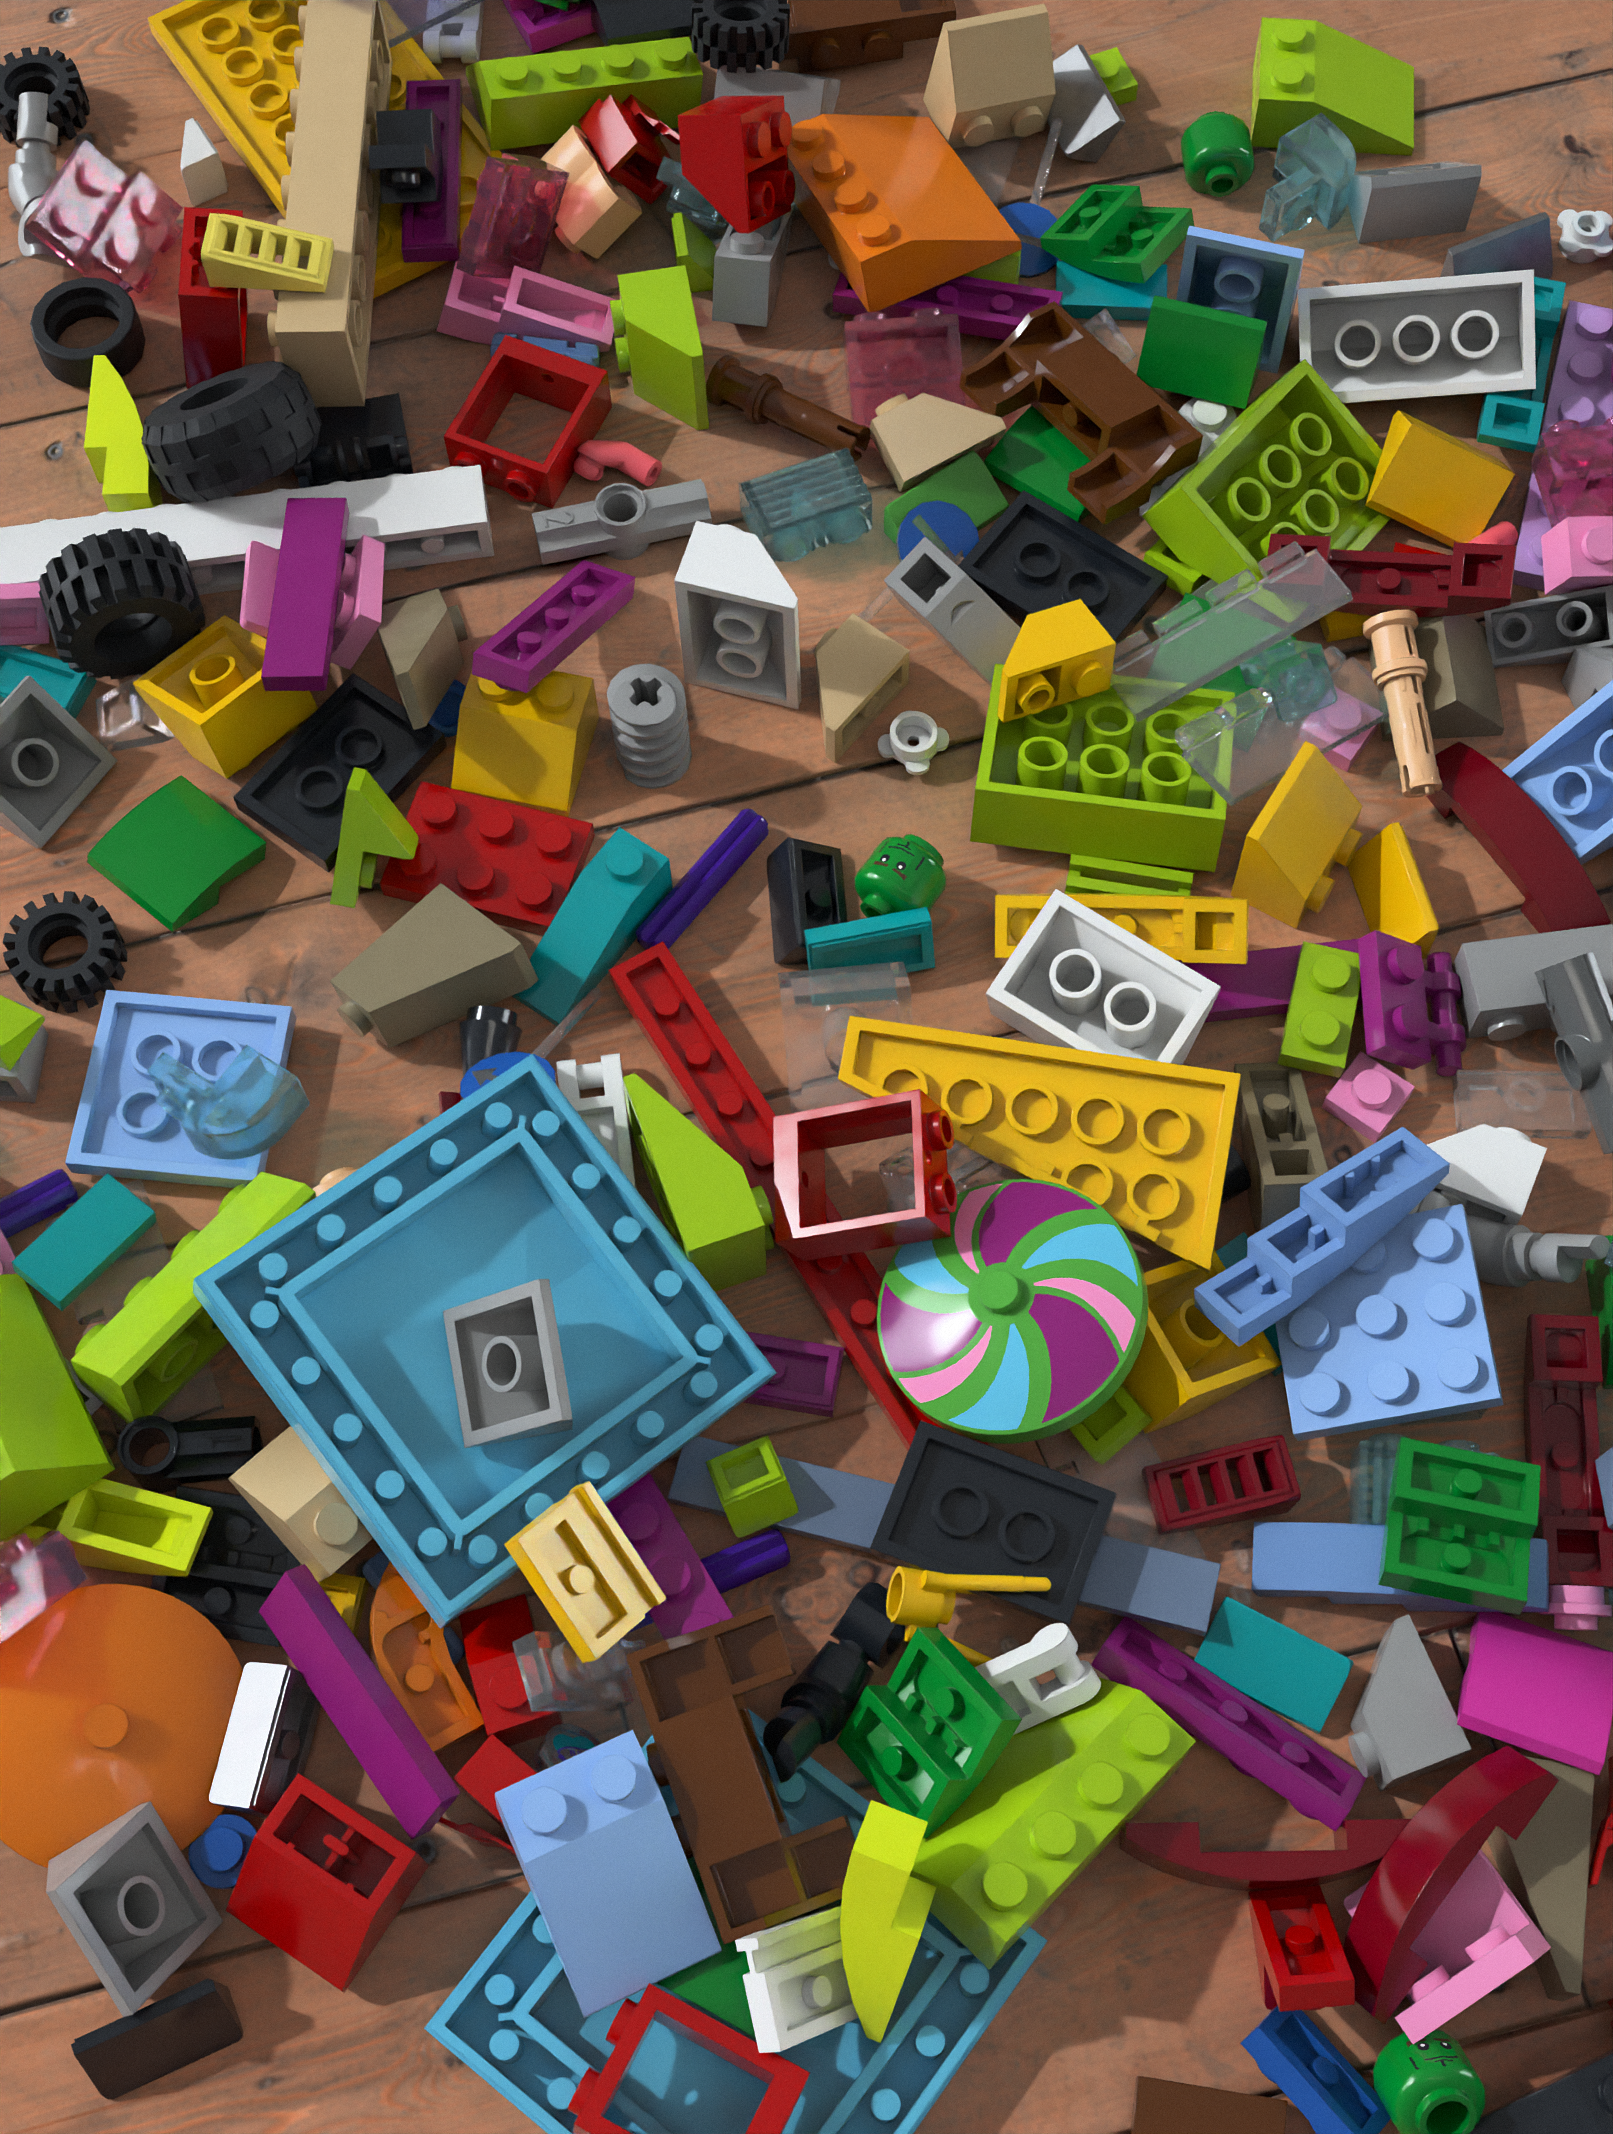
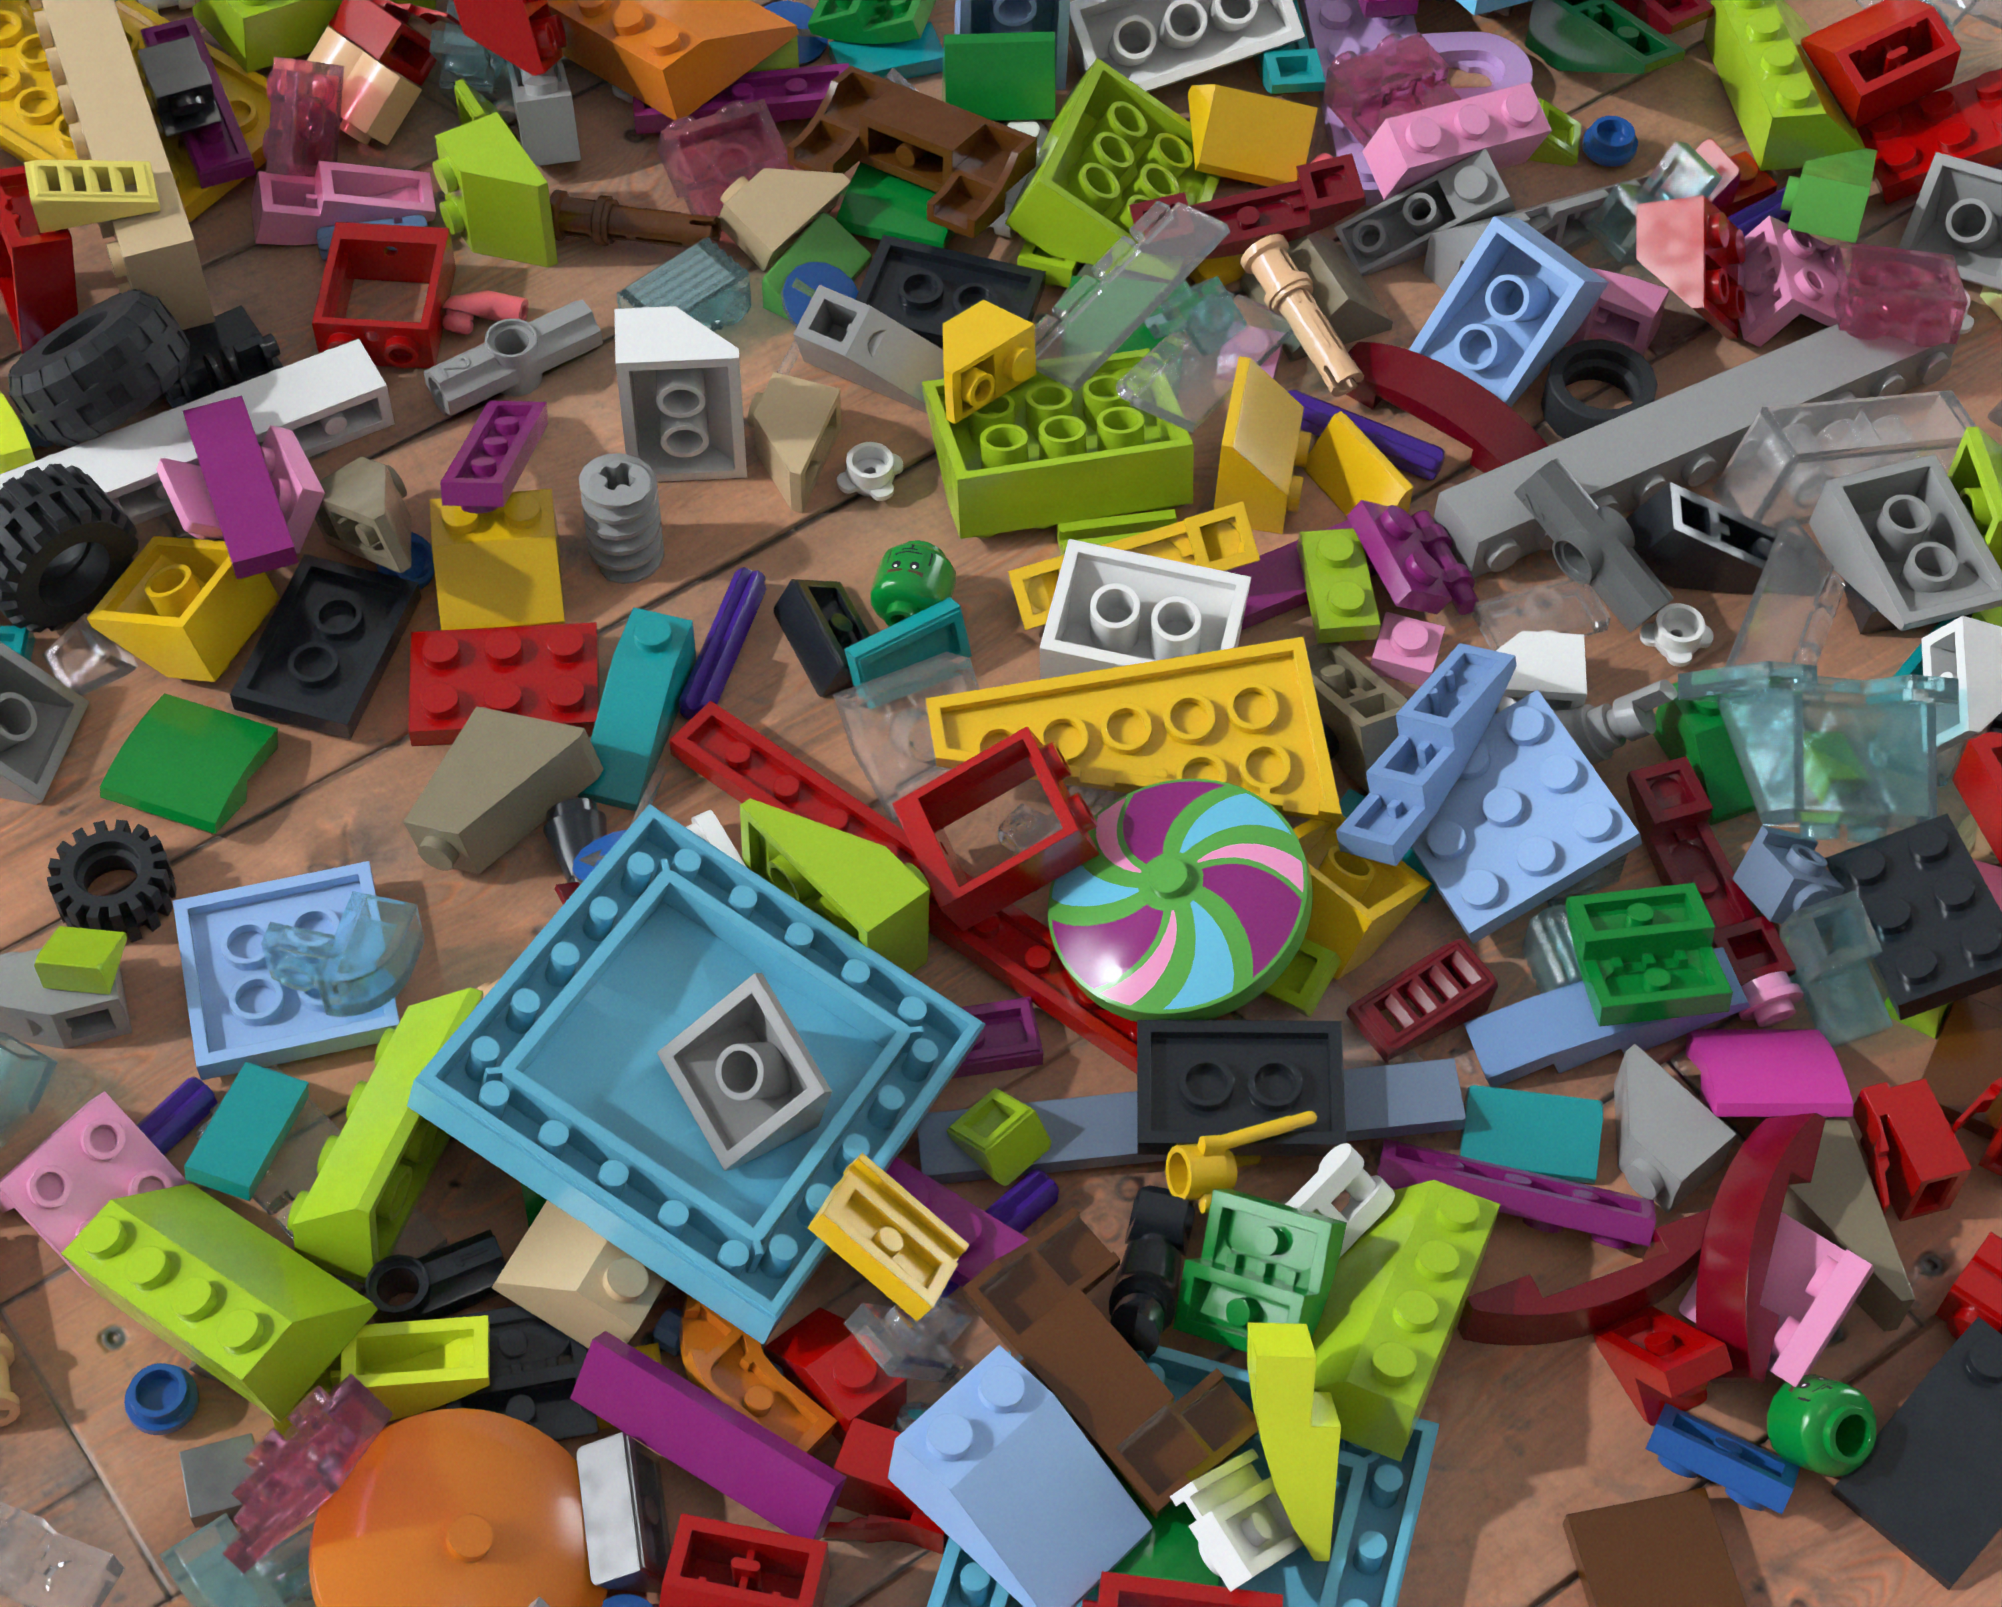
camera: 25 degrees left, 10 degrees down
(368, 828) = (380, 675): lime slope -> none
(1432, 857) = (1400, 448): none -> dark purple axle

